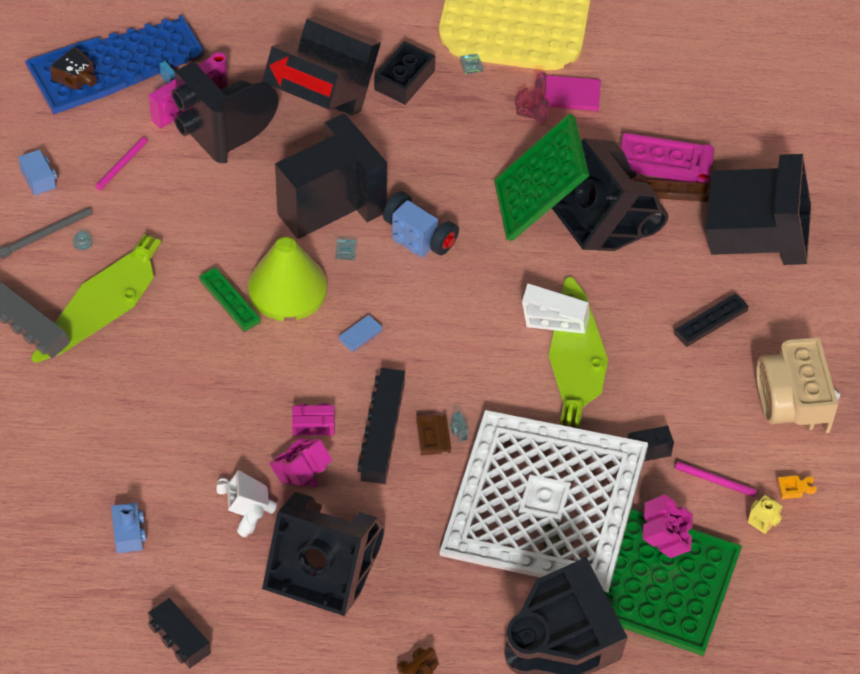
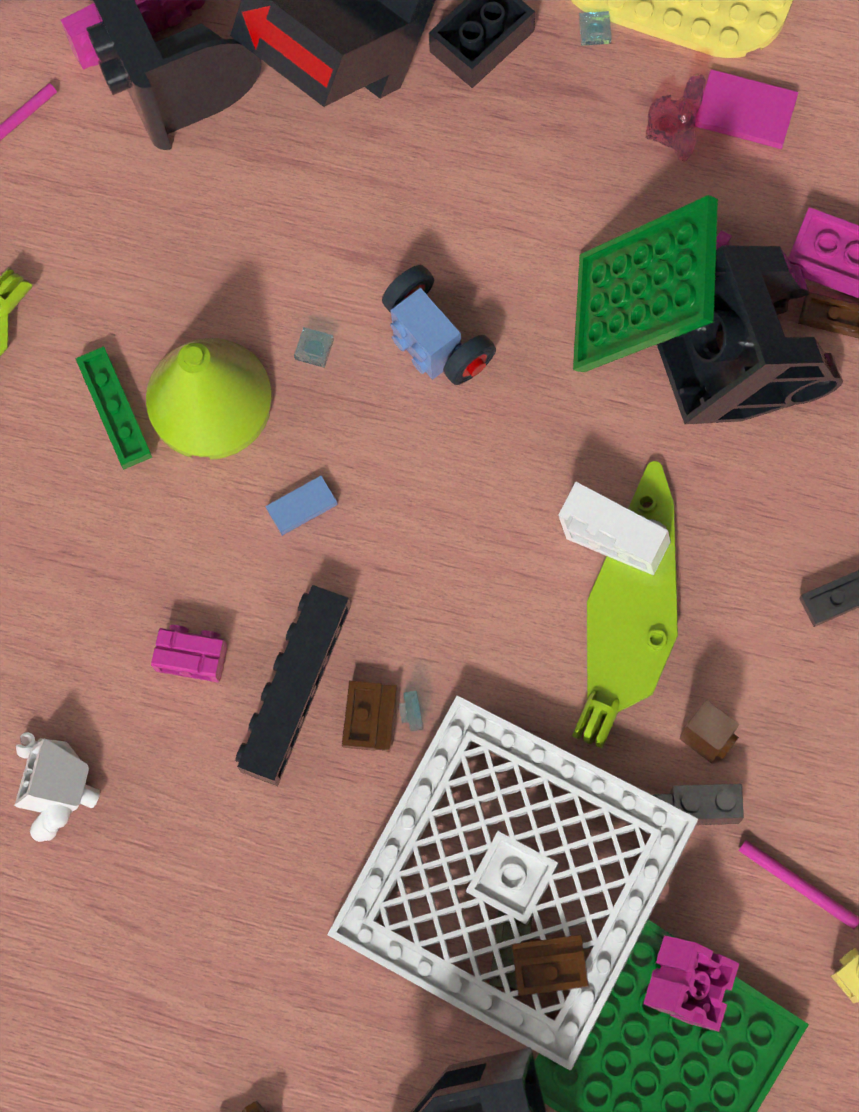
camera: 20 degrees right, 20 degrees up
(301, 462) = (147, 737): dark pink brick -> none
(331, 180) = (307, 227): black piece -> none
(346, 545) = (118, 940): black brick -> none
(581, 533) = (550, 965): none -> reddish brown plate
(641, 404) = (710, 732): none -> reddish brown brick

